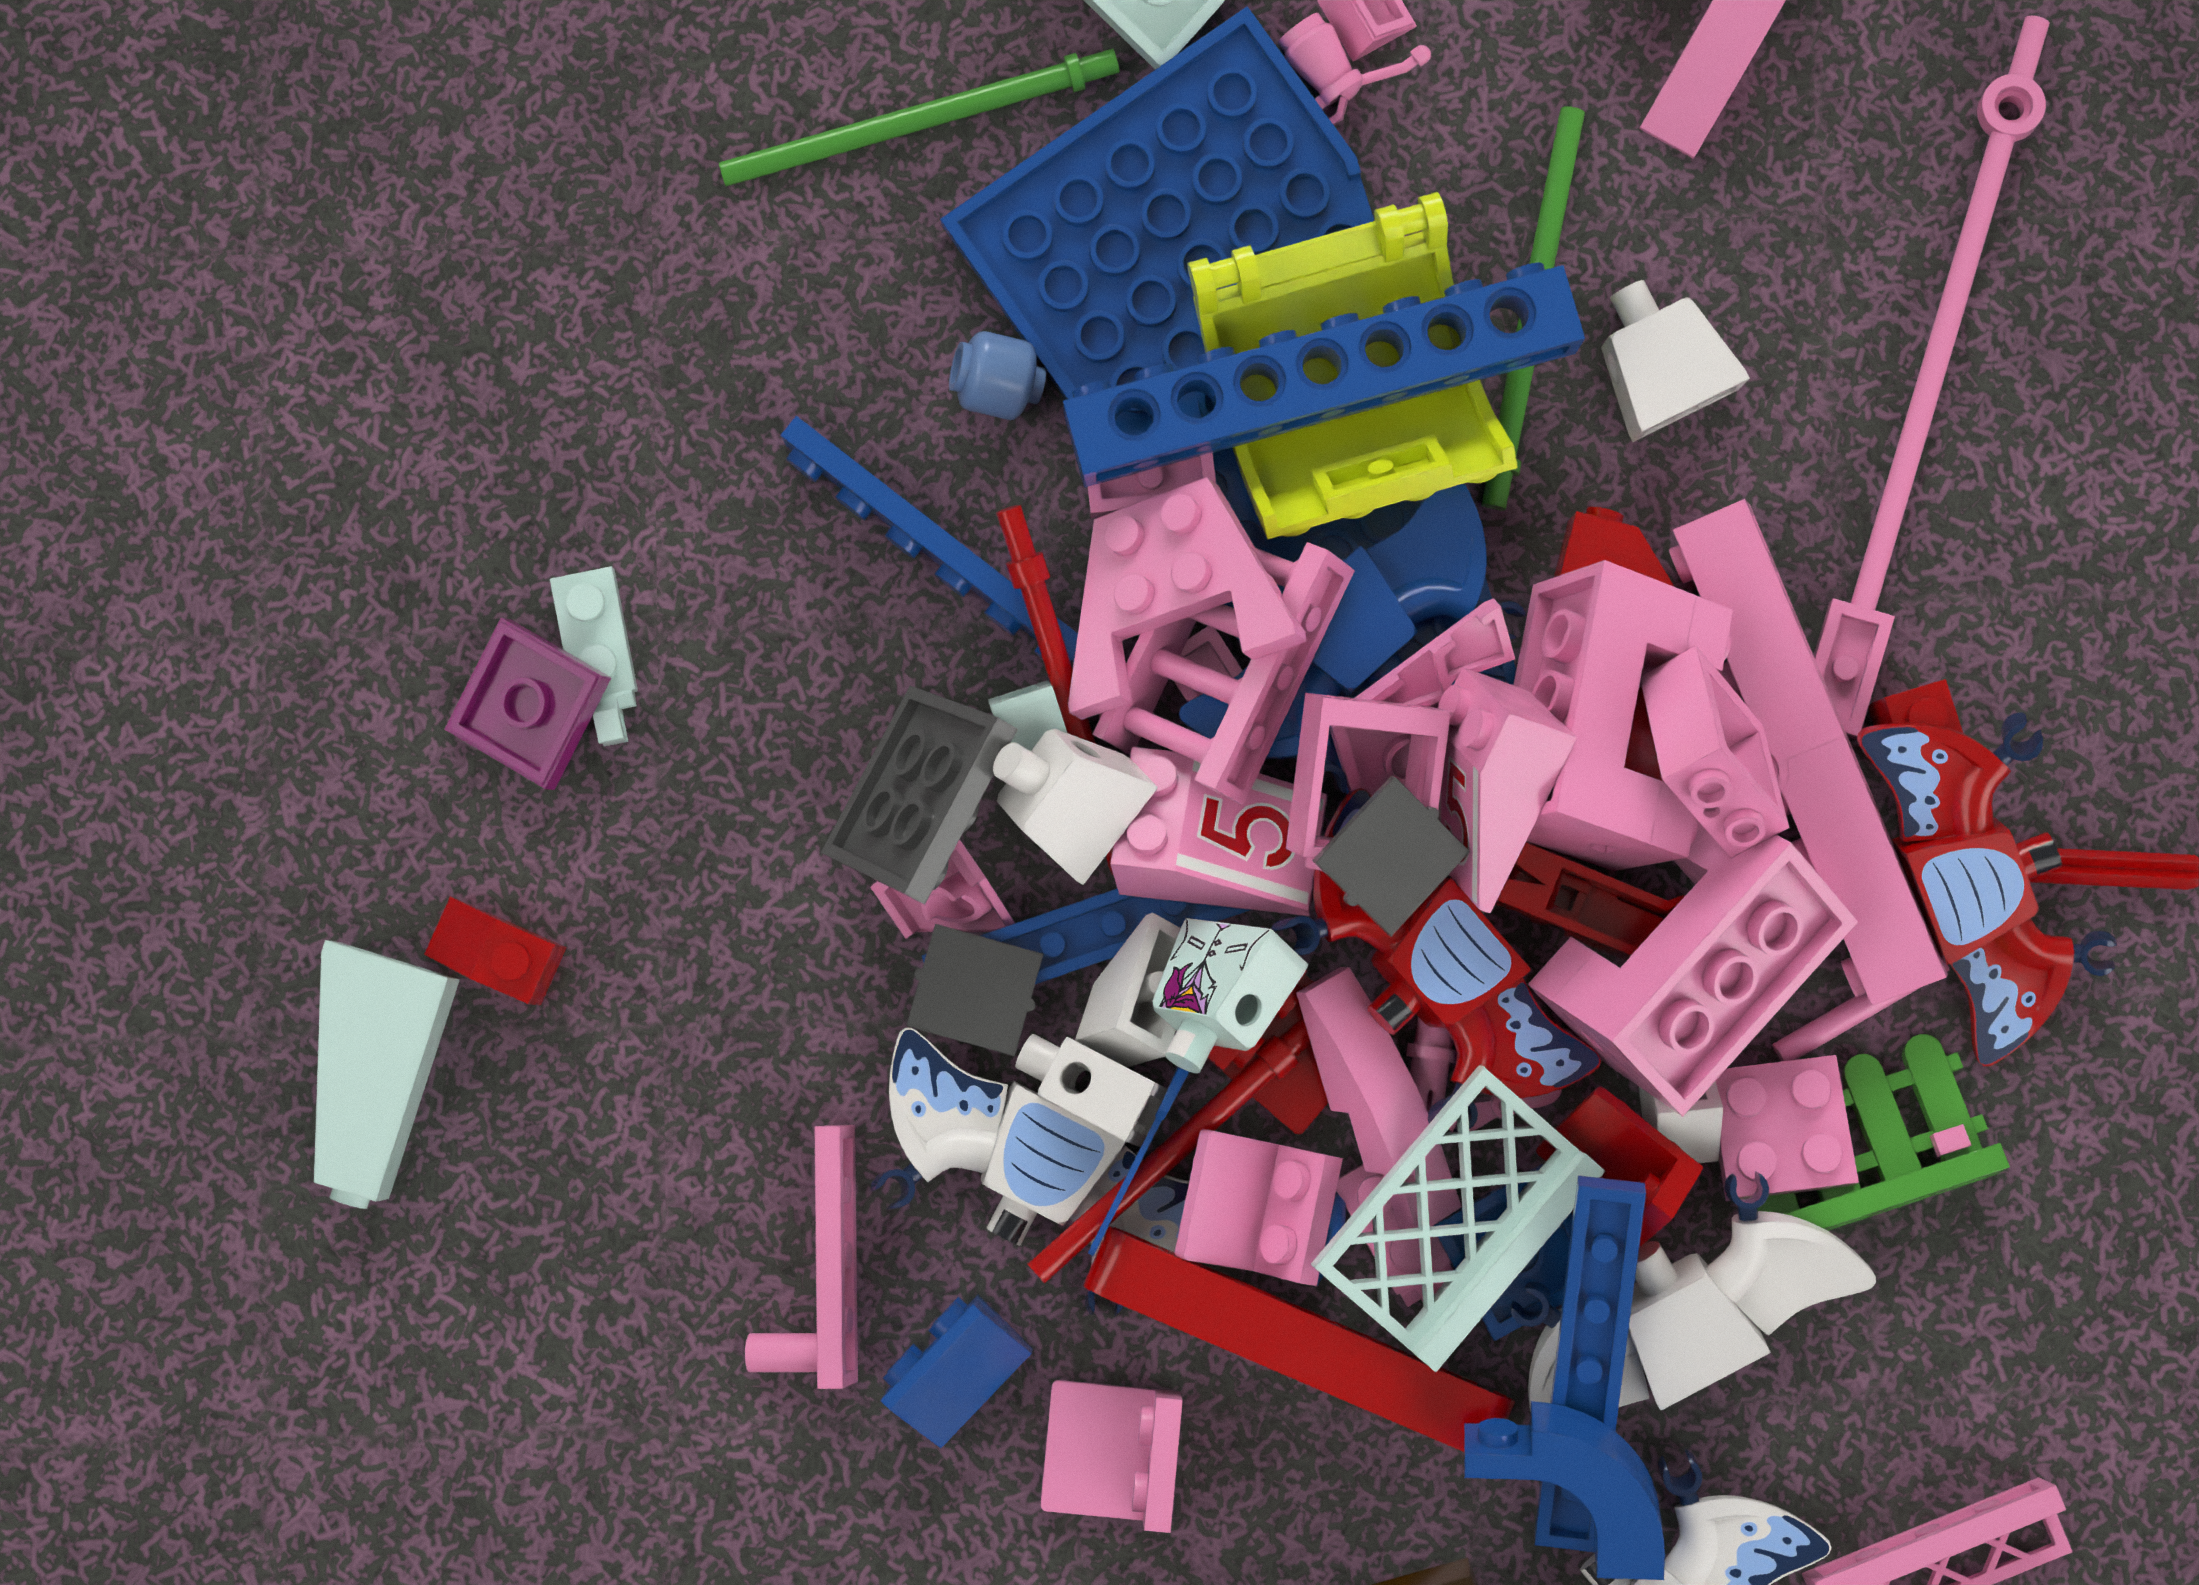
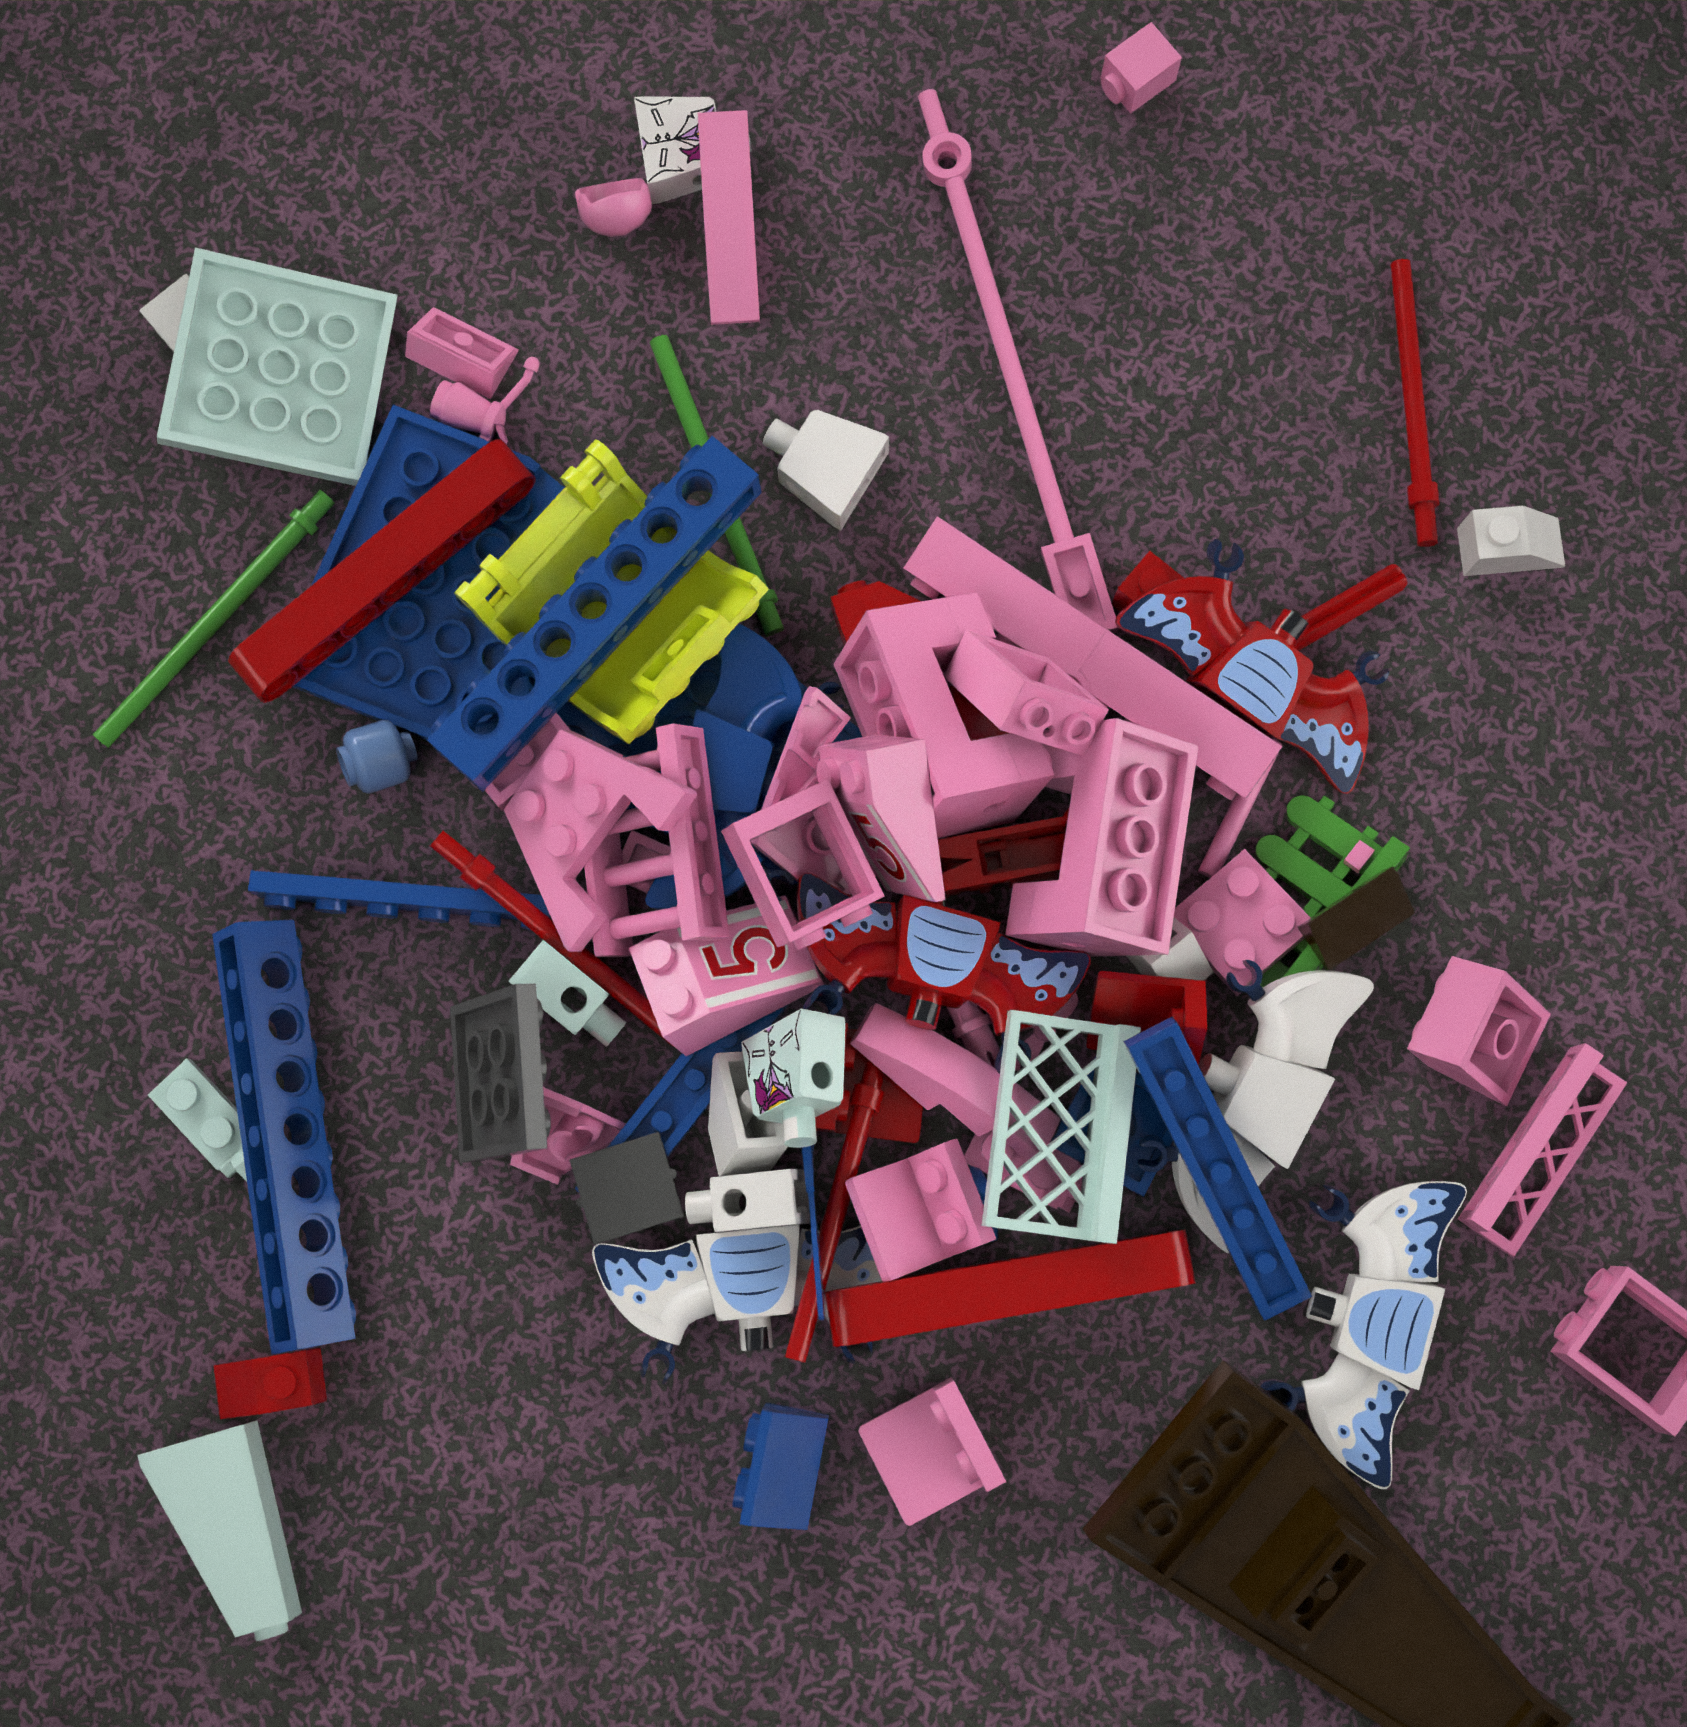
camera: 30 degrees left, 5 degrees down
(527, 703) = (184, 1192): magenta tile -> none
(635, 726) = (267, 1153): none -> blue brick
(834, 1347) = (687, 1507): bright pink piece -> none
(1071, 797) = (605, 1008): white torso -> none
(1126, 183) = (381, 571): none -> red beam
(1391, 855) = (850, 903): dark grey piece -> none
(1590, 1463) = (1269, 1237): blue arch -> none
(1905, 1204) = (1357, 918): none -> dark brown slope
(1955, 1397) = (1479, 1028): none -> bright pink slope

